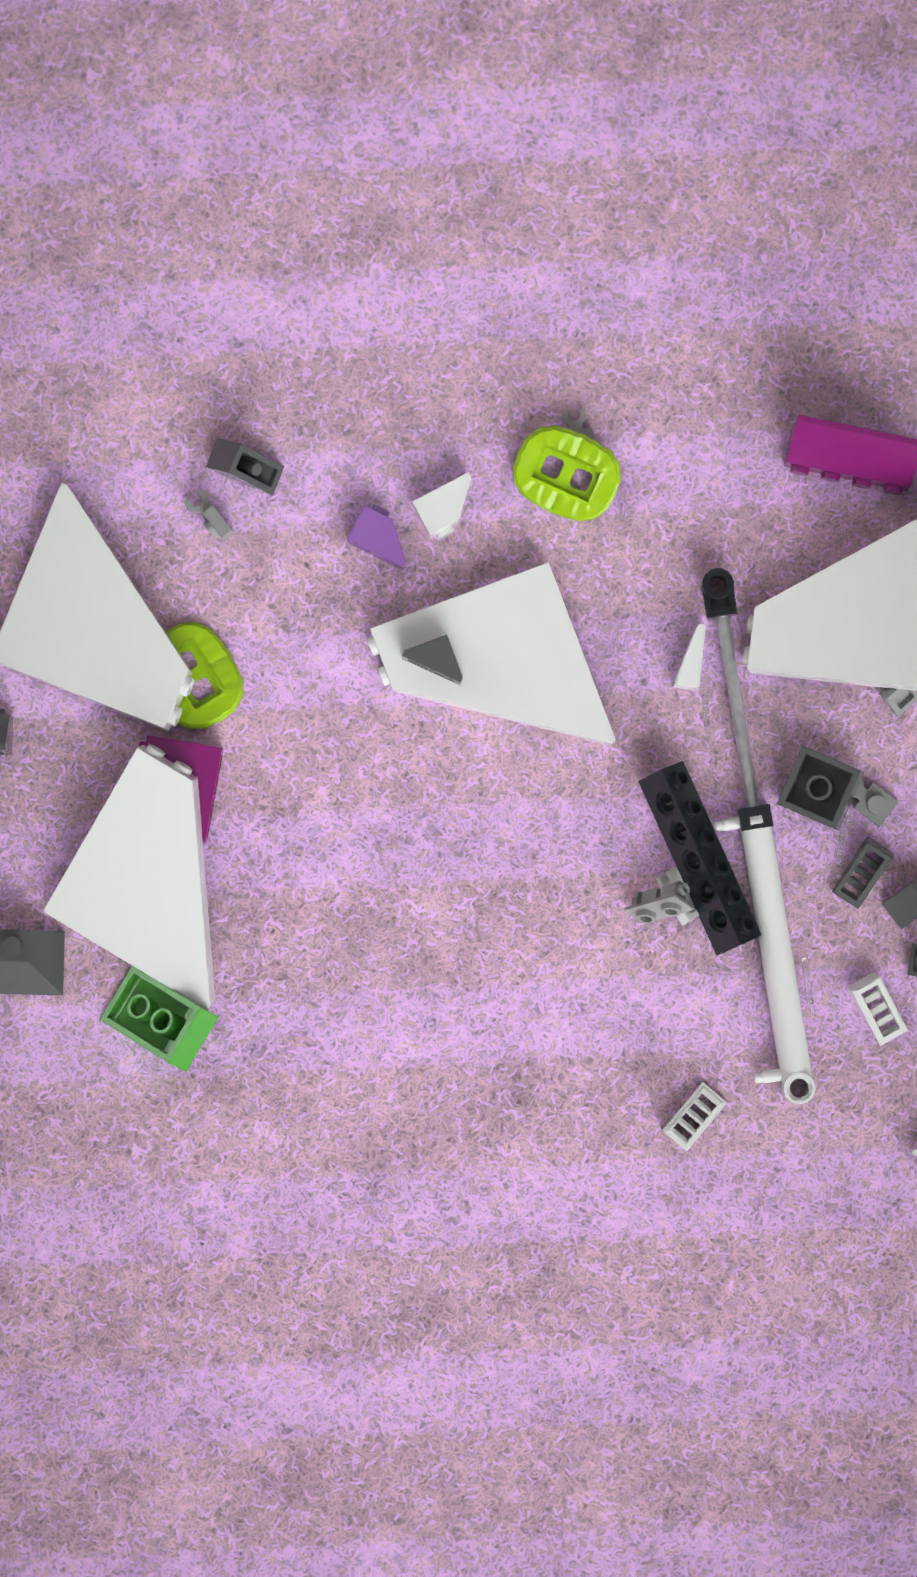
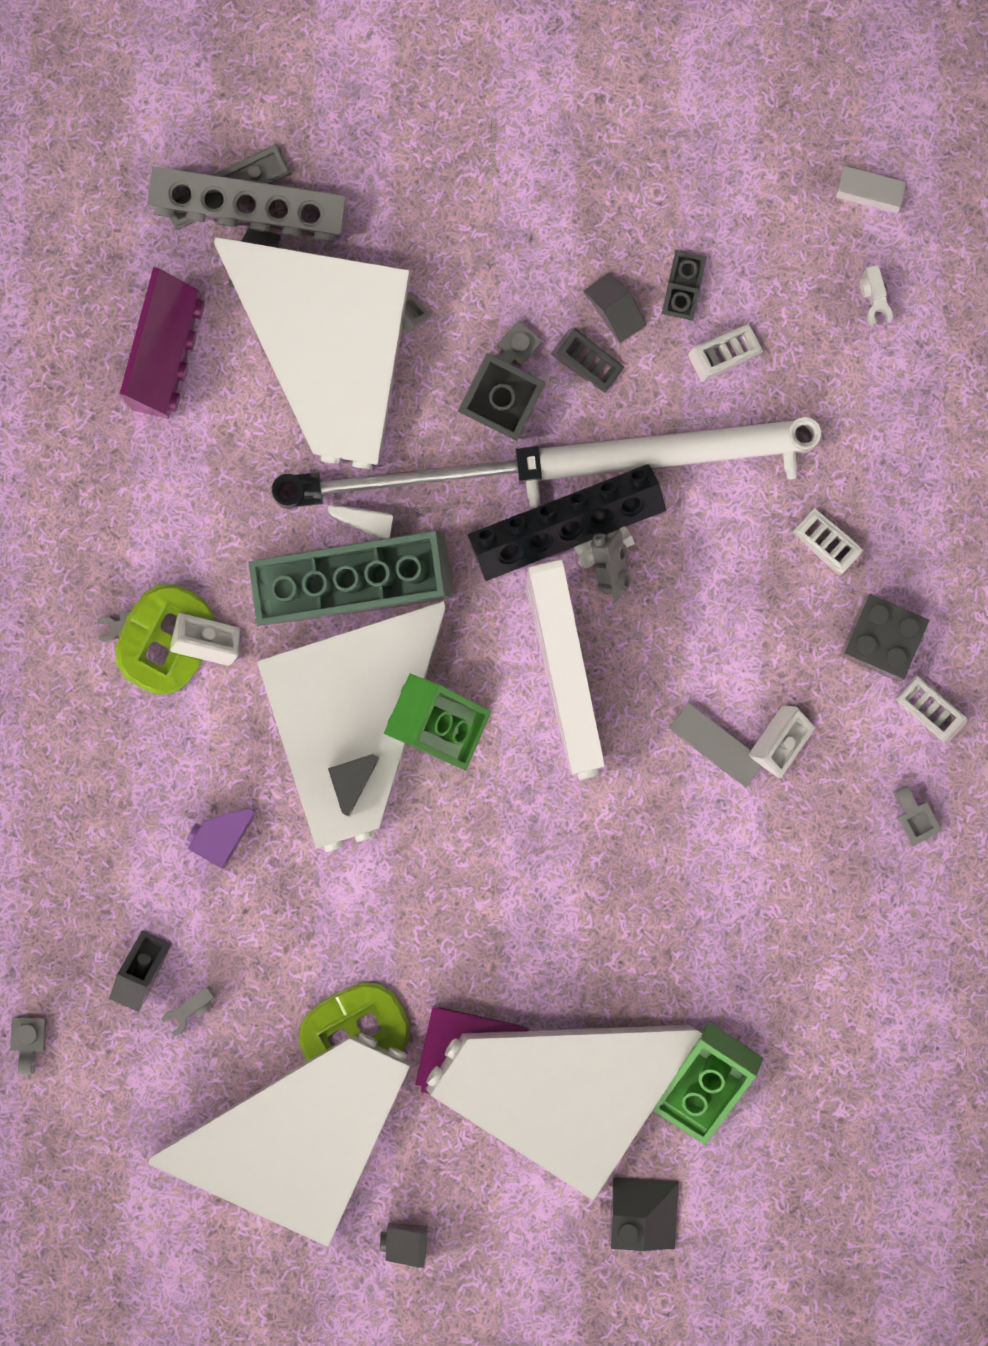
camera: 90 degrees left, 0 degrees up
(177, 363) = (27, 1037): none -> light grey plate
(423, 1214) = (917, 820): none -> light grey plate
(443, 507) = (193, 767): white slope -> none
(488, 1015) = (715, 744): none -> light grey tile
(495, 1079) = (782, 740): none -> white slope
(497, 740) = (437, 721): none -> bright green slope
(512, 1245) = (949, 710): none -> white slope
(553, 858) = (564, 667): none -> white slope
(568, 512) = (205, 639): none -> white slope
(601, 1175) = (884, 638): none -> dark grey brick
(634, 650) = (351, 579): none -> sand green slope

